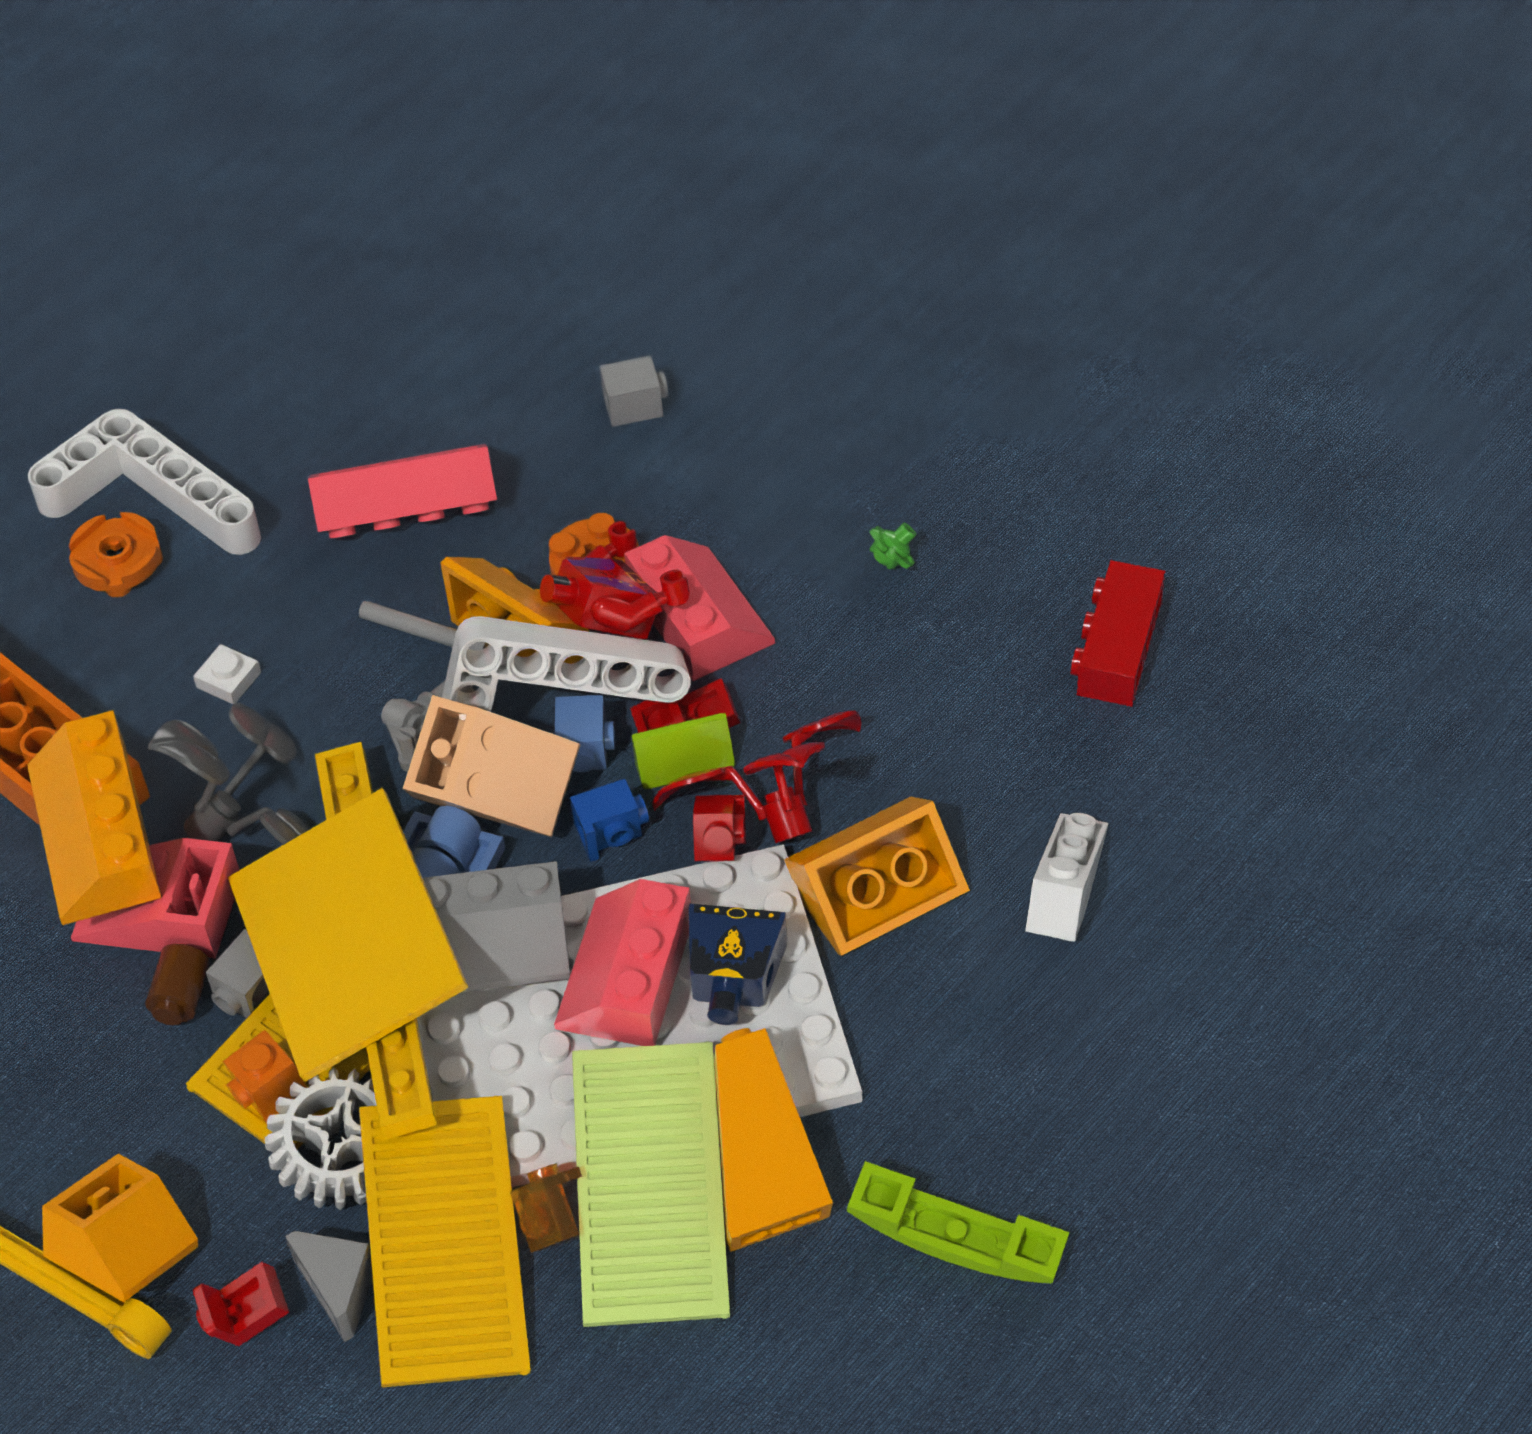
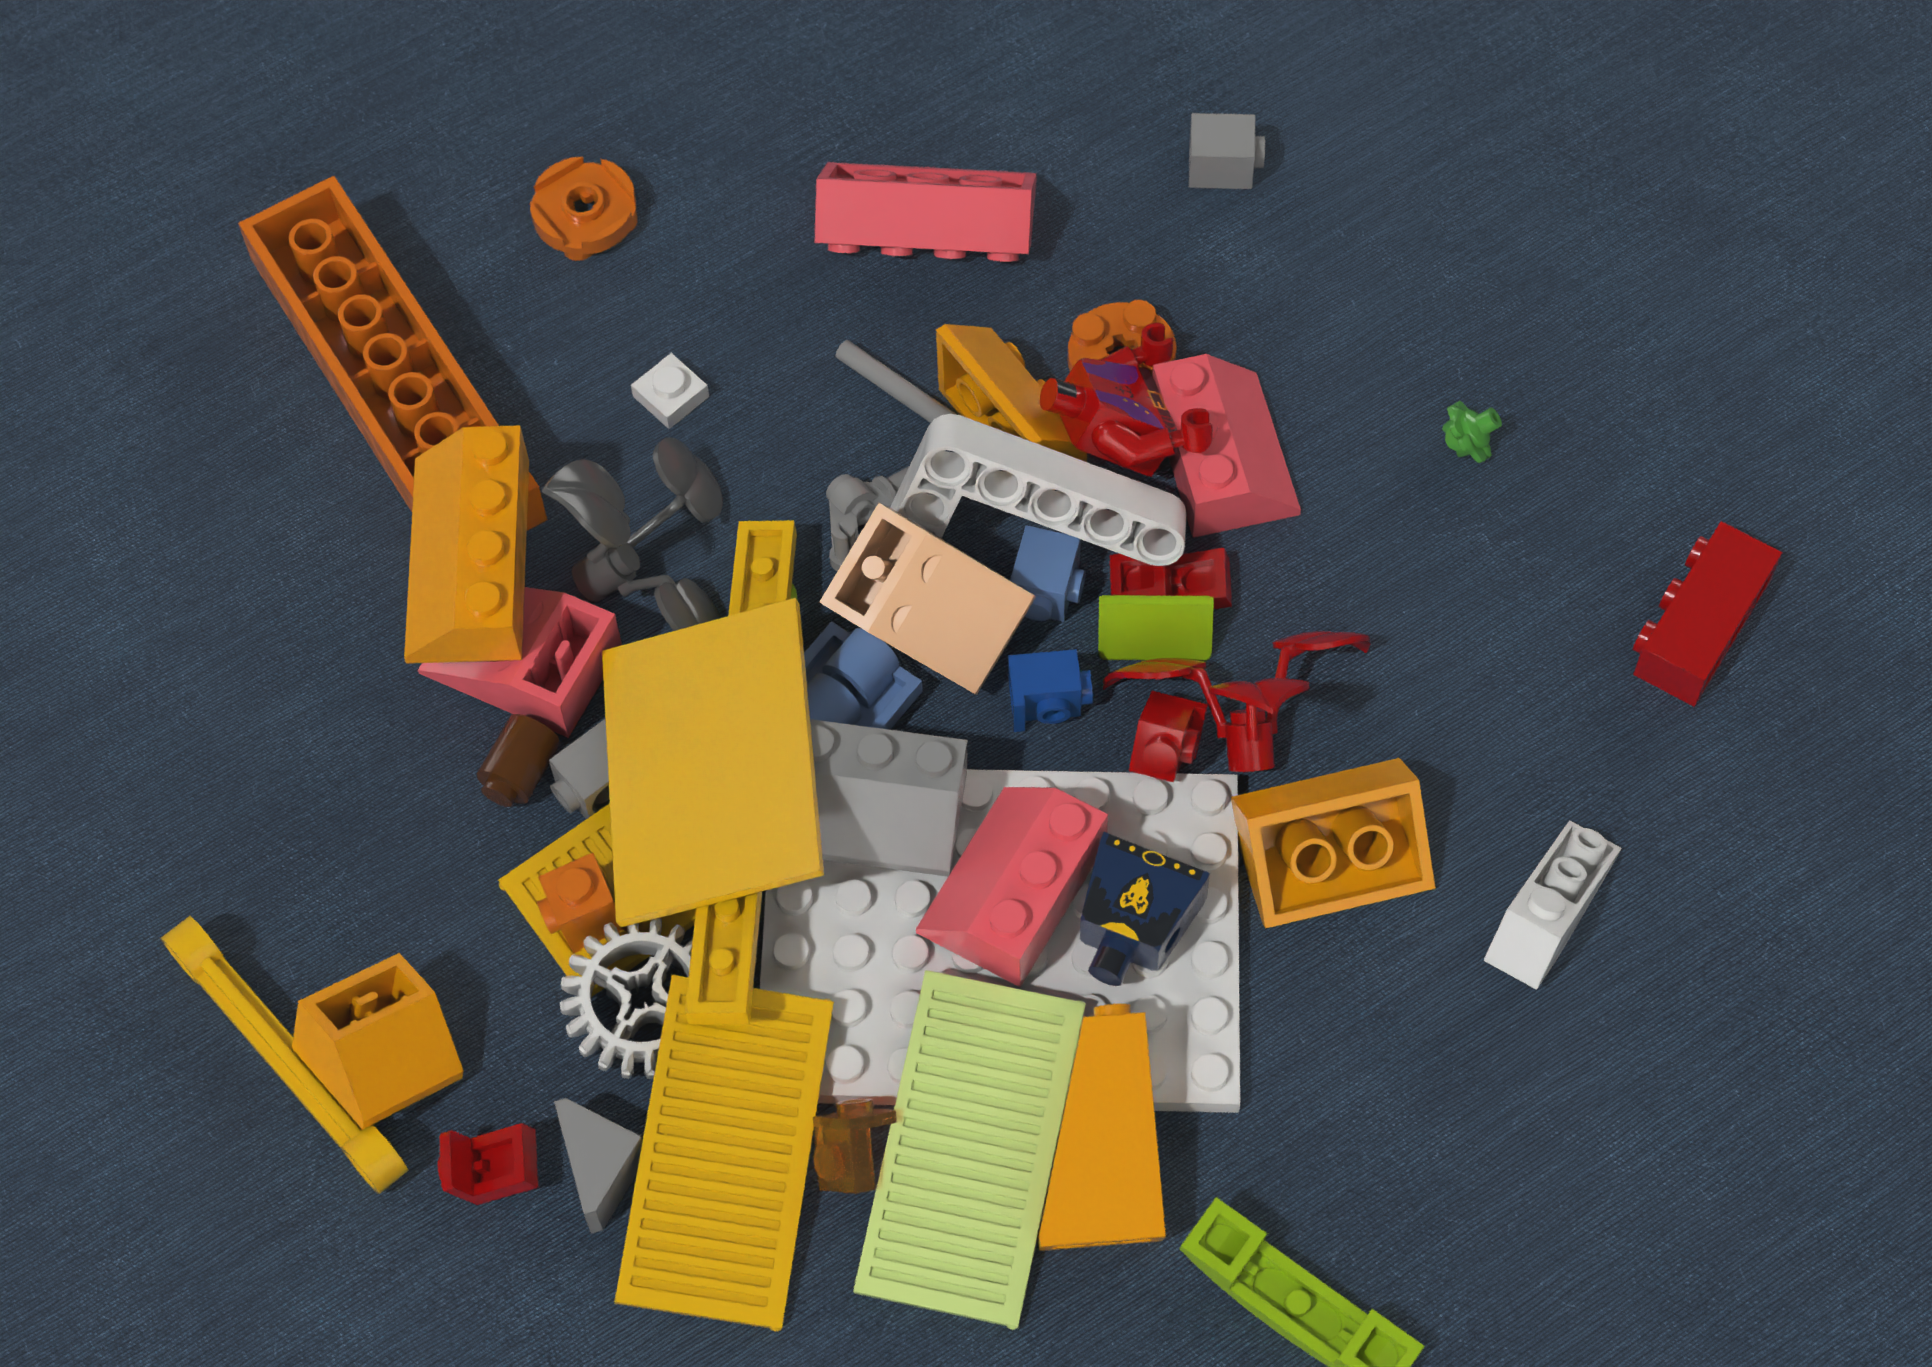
camera: 15 degrees right, 10 degrees up
(129, 446) = (628, 74): white beam -> none

